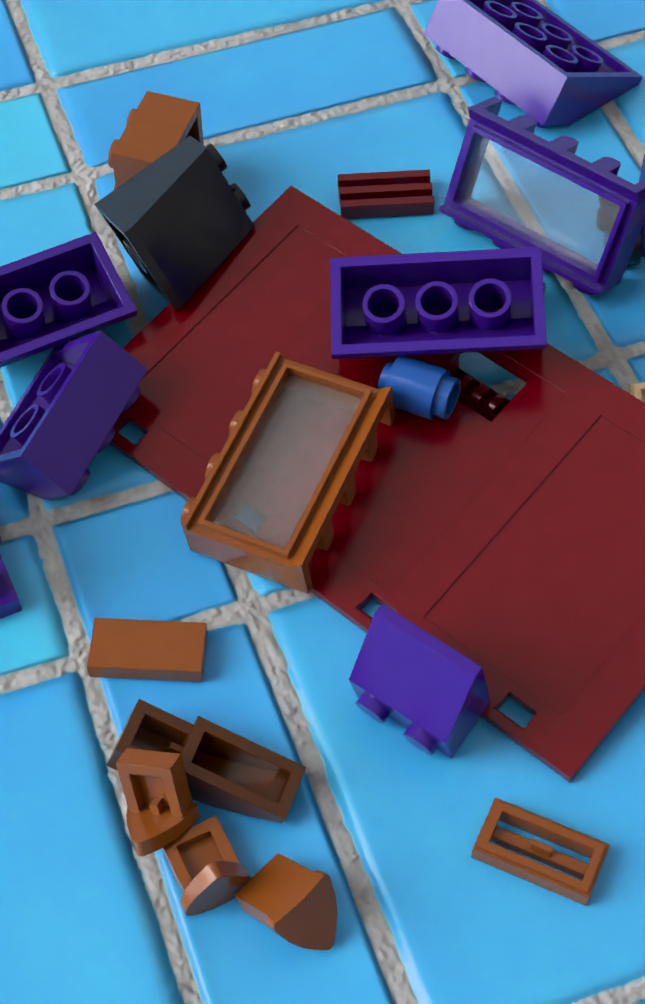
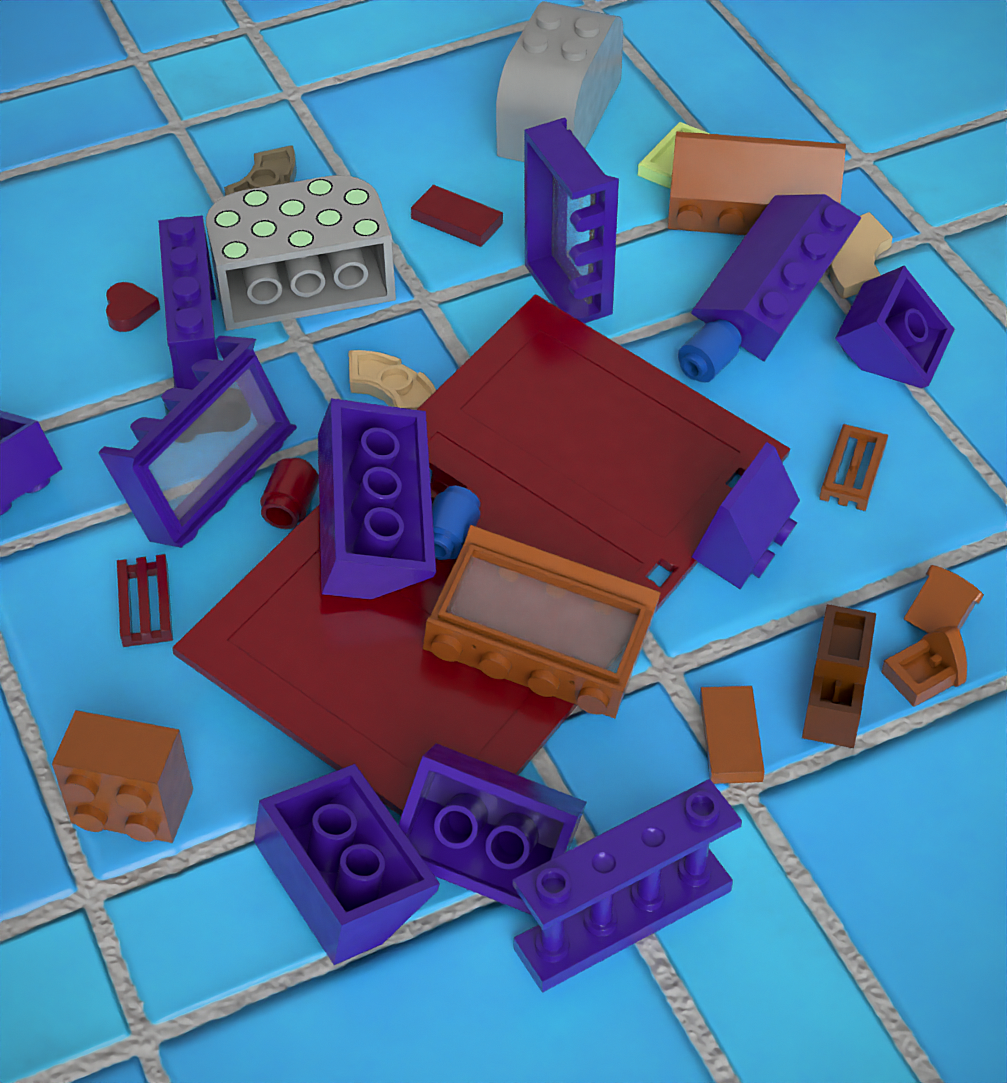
camera: 95 degrees left, 5 degrees down
(155, 797) = (891, 695): dark orange tile -> none
(178, 219) = (240, 734): black slope -> none

